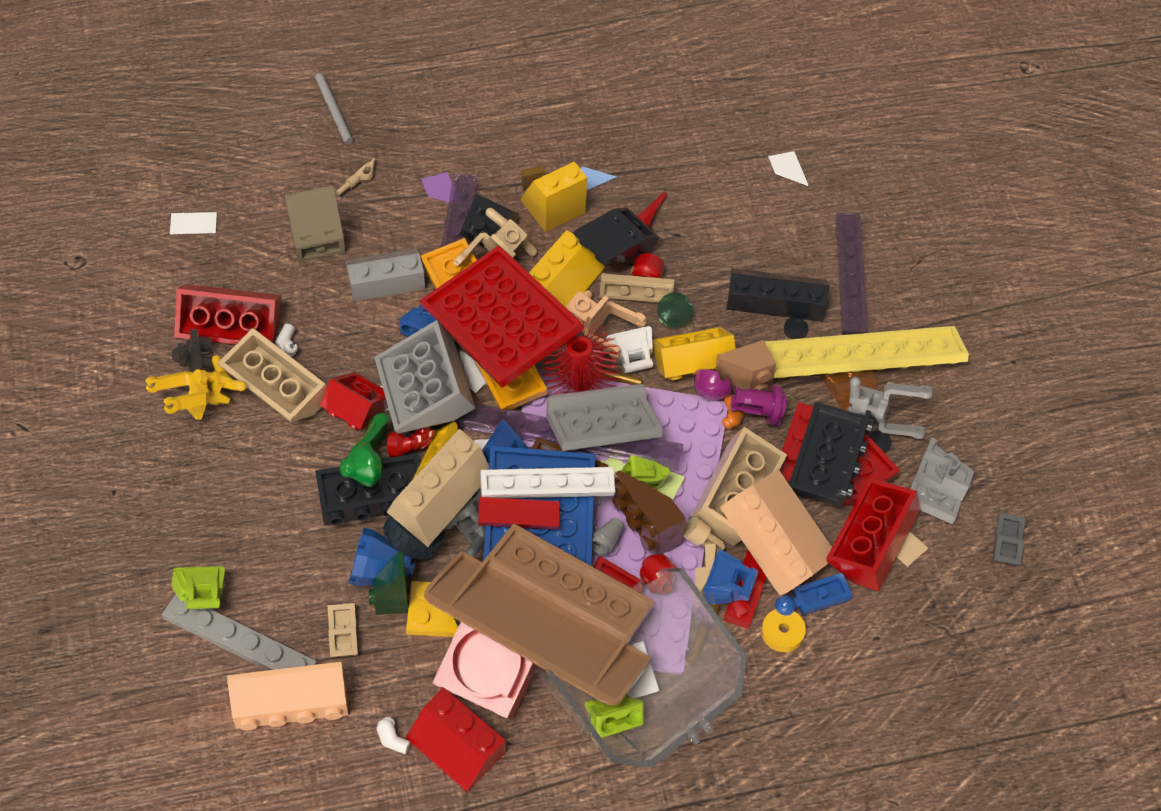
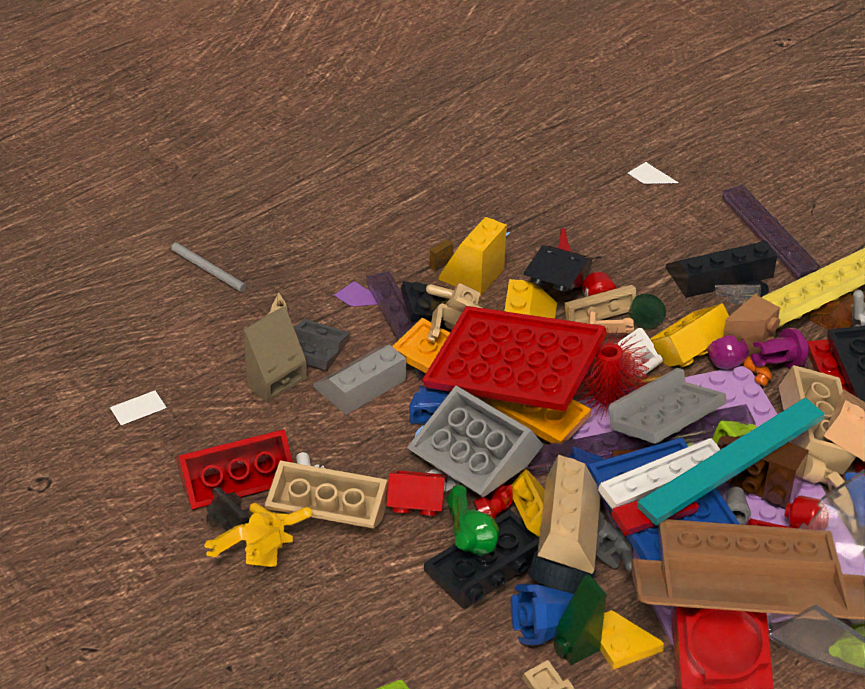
camera: 25 degrees left, 15 degrees down
(371, 222) = (320, 343): none -> flat silver slope
(609, 498) = (730, 461): none -> teal tile
(772, 328) = (737, 293): none -> clear tile

